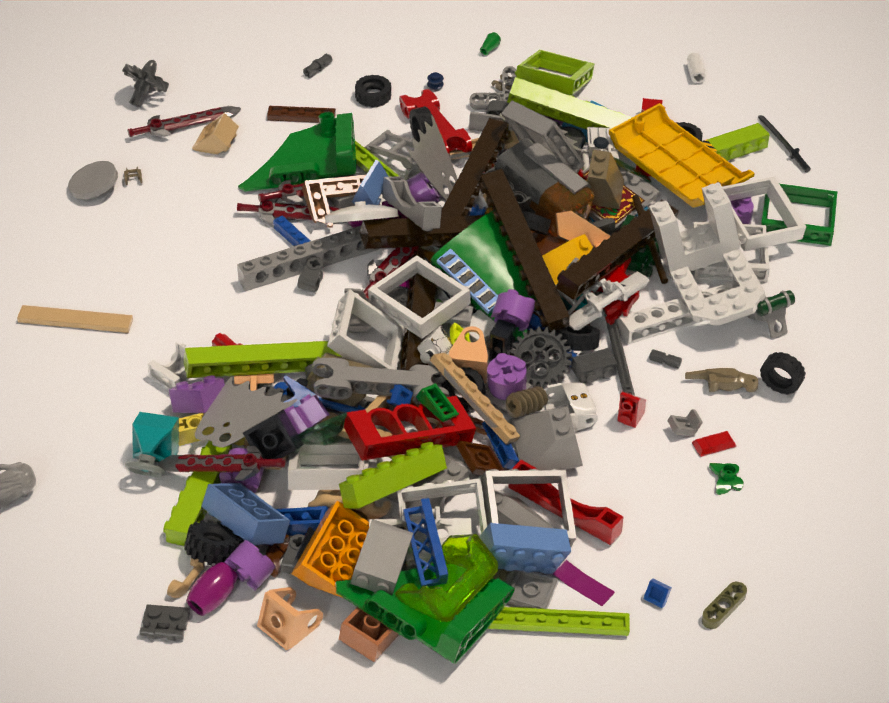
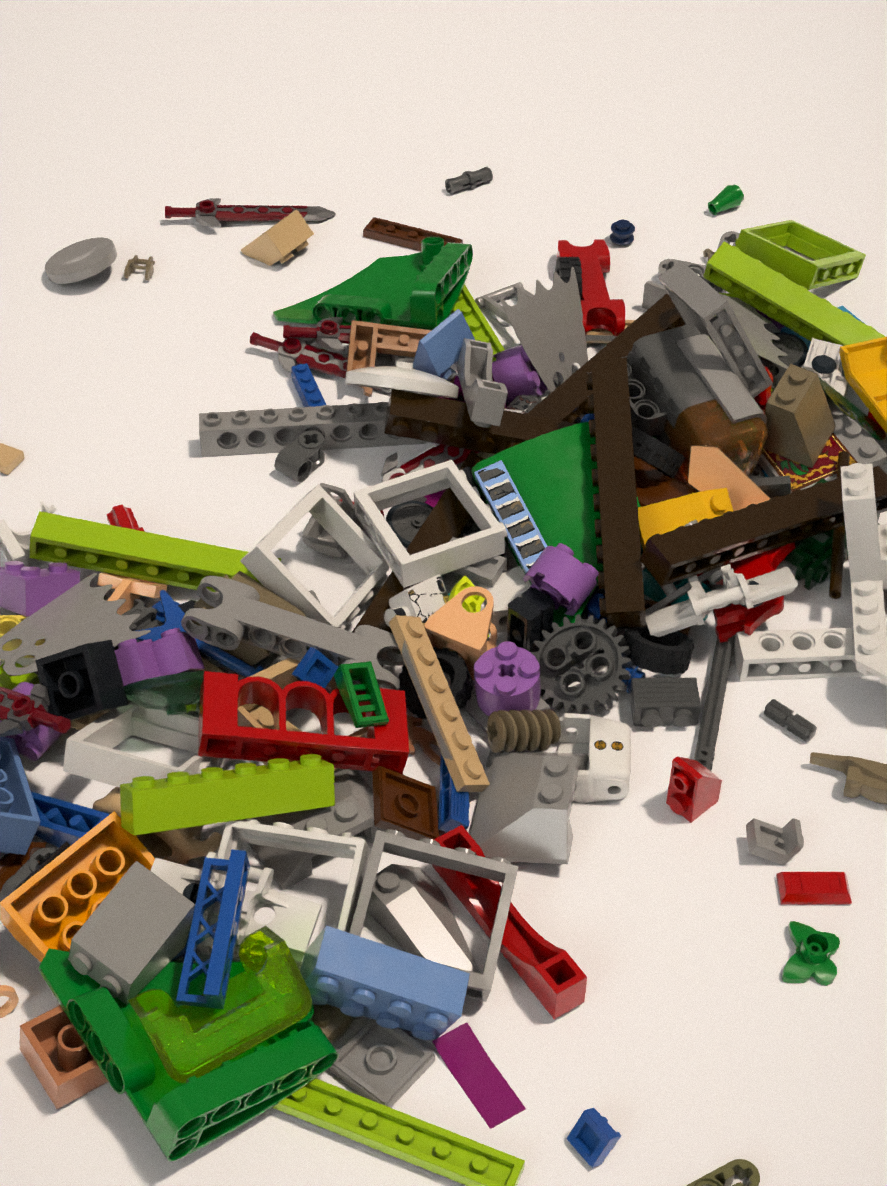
camera: 20 degrees right, 0 degrees up
(144, 79) = (220, 148): dark grey piece -> none
(373, 82) = (527, 238): black tyre -> none

